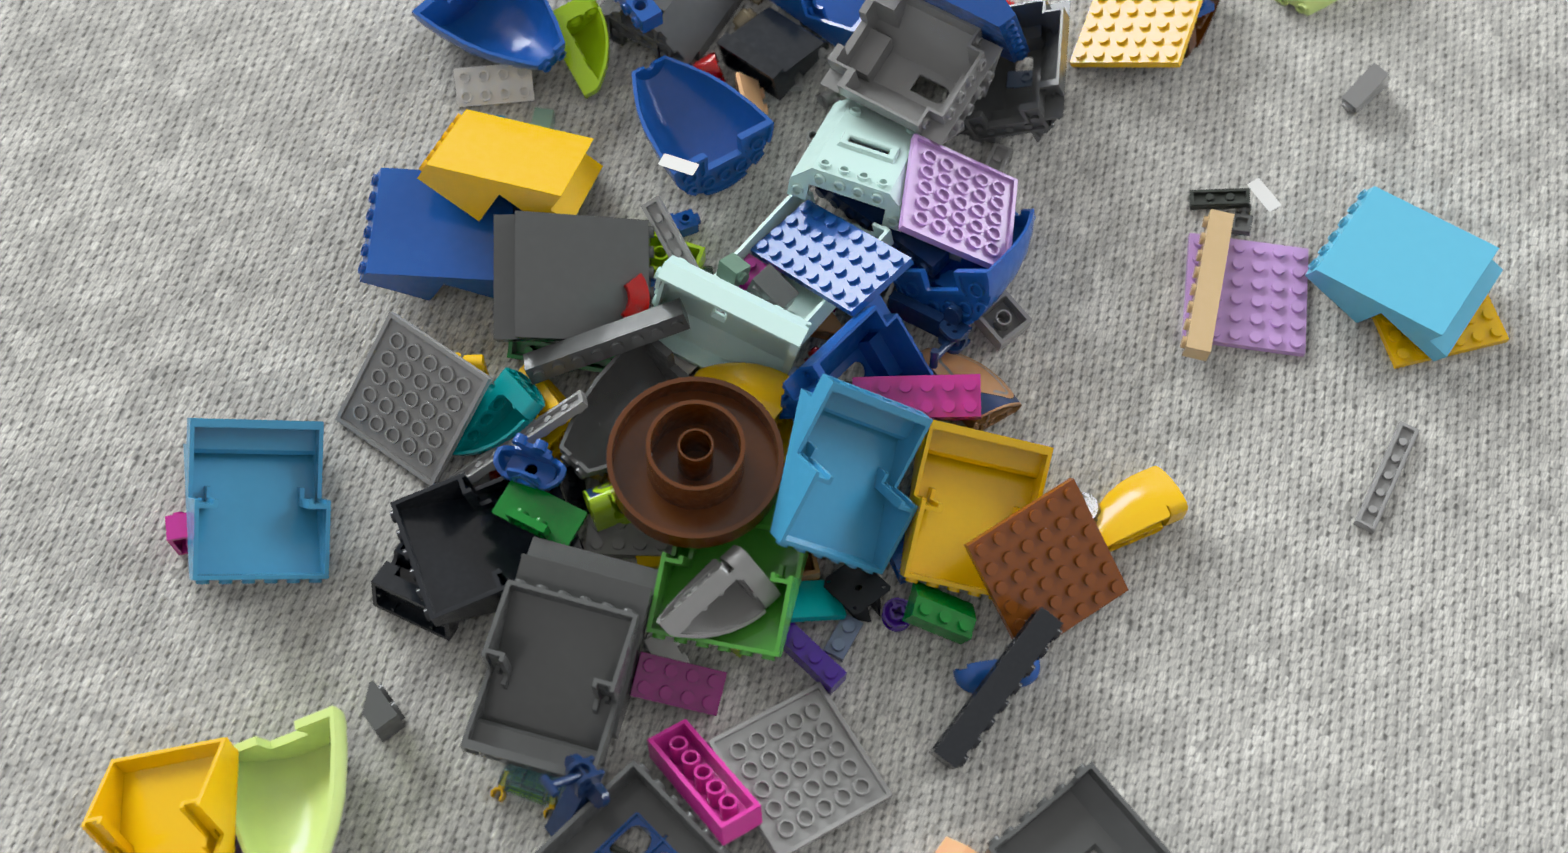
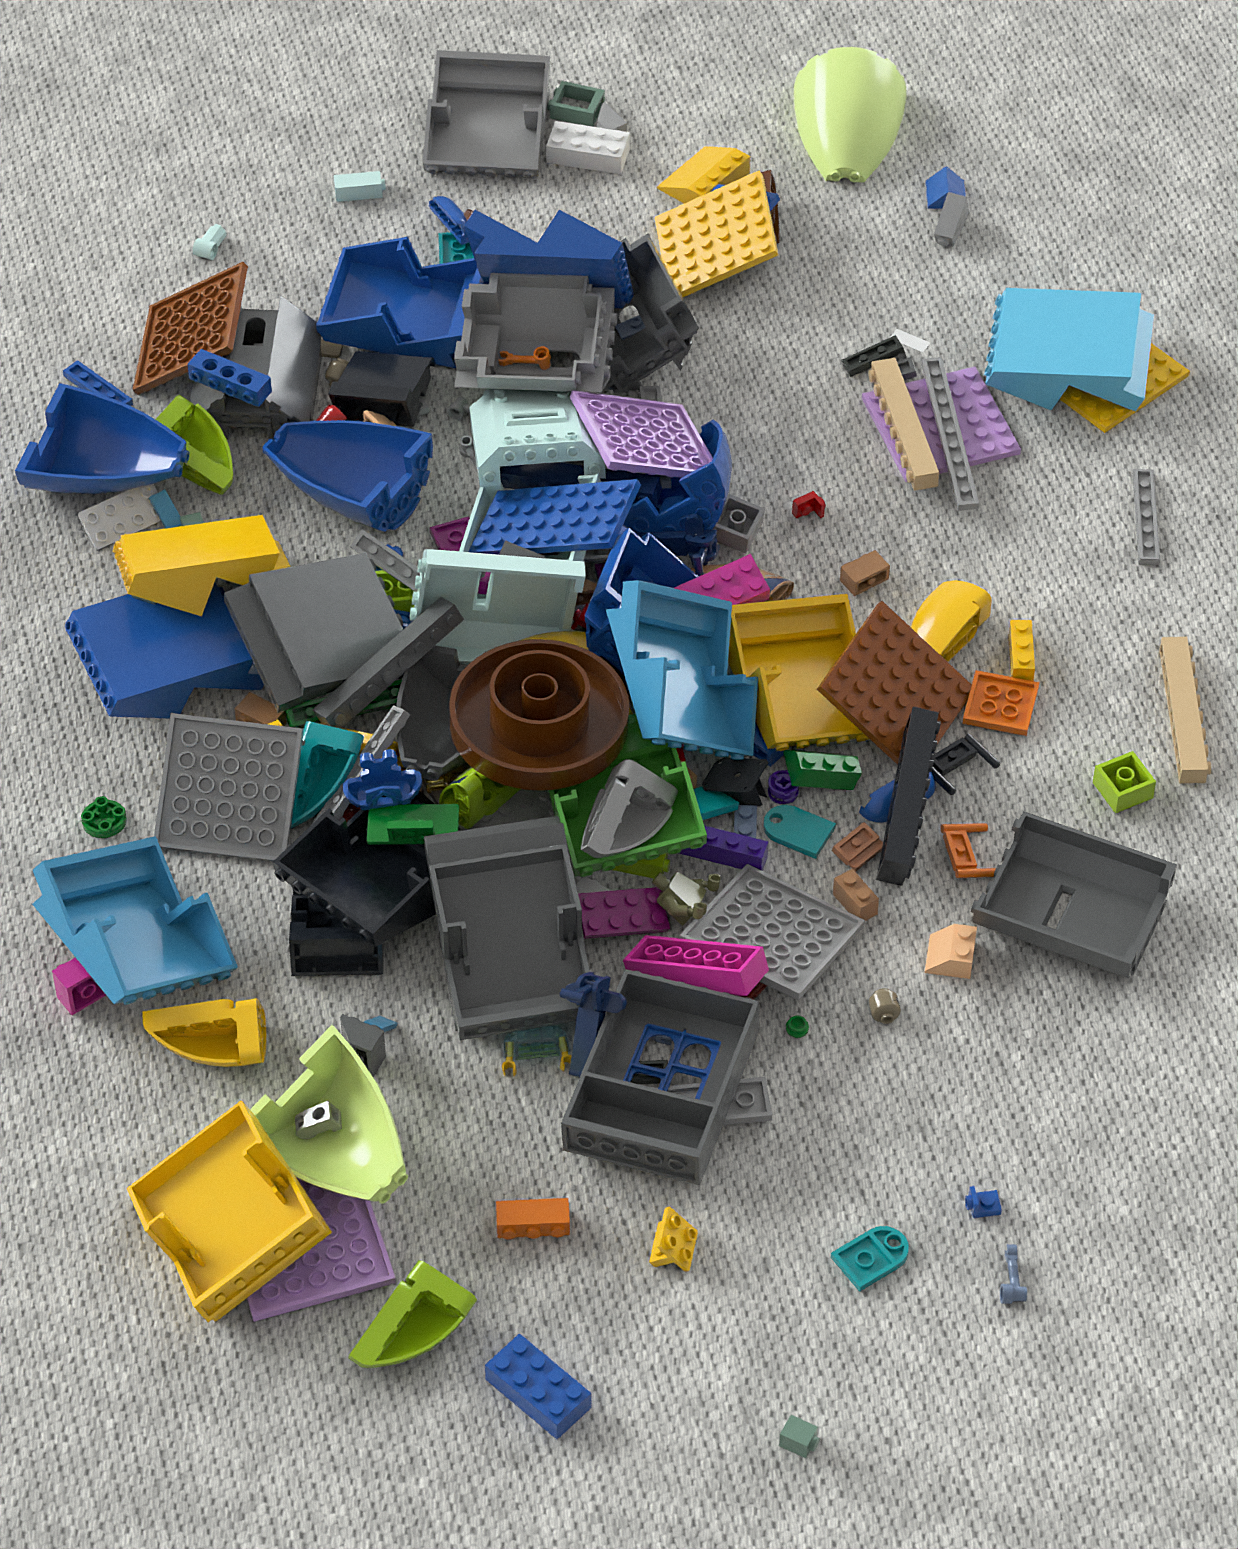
camera: 25 degrees left, 15 degrees down
(268, 640) = (212, 1031): none -> yellow panel
(301, 774) = (317, 1120): none -> light grey leg
(313, 372) = (103, 818): none -> green tile
(411, 696) = (382, 1022): none -> dark azure piece
(484, 327) = (258, 710): none -> medium nougat brick
(530, 94) = (165, 509): none -> dark azure piece
(637, 295) = (389, 620): red tile -> none
(678, 164) = (362, 498): white sticker -> none
(740, 693) = (683, 896): none -> olive torso
(747, 221) = (449, 534): none -> magenta plate
(888, 666) = (798, 829): none -> teal tile
(897, 765) = (855, 895): none -> medium nougat brick
(912, 82) = (540, 356): none -> orange brick
(930, 711) = (858, 847): none -> nougat plate
(1021, 760) = (961, 852): none -> orange plate
(1071, 655) = (955, 756): none -> black plate
(1076, 327) = (807, 503): none -> red bracket
(1091, 421) = (864, 572): none -> medium nougat brick
(1143, 617) = (1001, 703): none -> orange plate
(1190, 573) = (1021, 649): none -> yellow brick
(1212, 762) = (1124, 782): none -> lime brick
(1244, 313) = (950, 434): none -> light grey plate
(1311, 708) = (1183, 710): none -> tan brick
(1379, 50) = (939, 186): none -> slope

